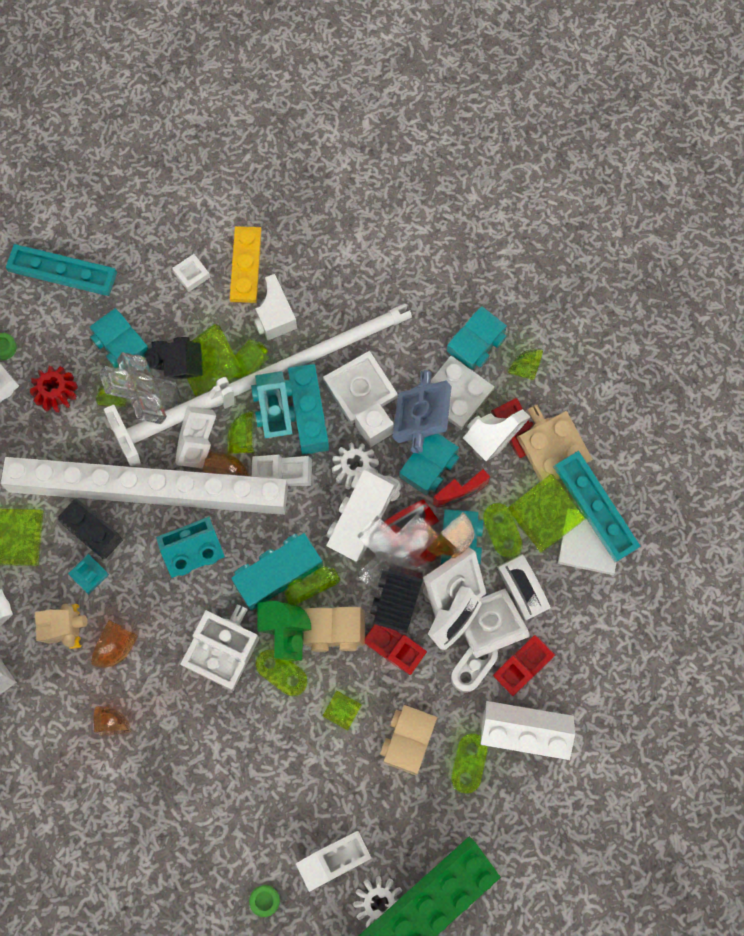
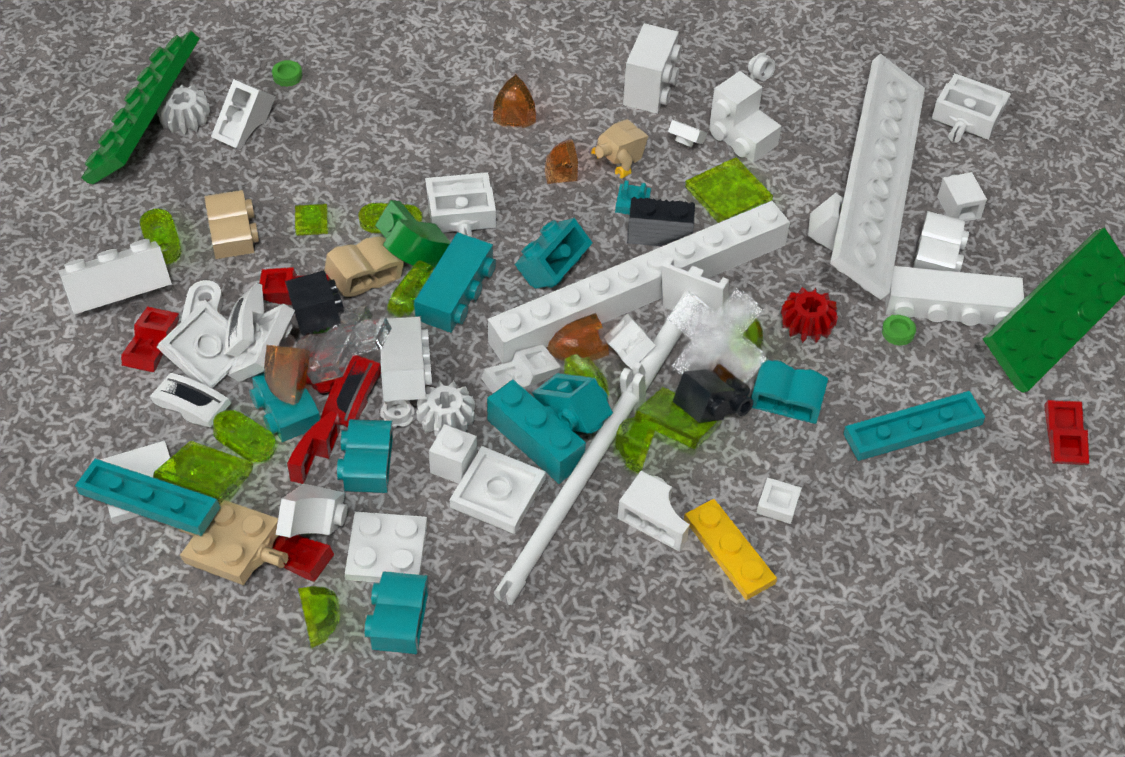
camera: 145 degrees right, 20 degrees down
(422, 411) = (406, 483): sand blue plate -> none

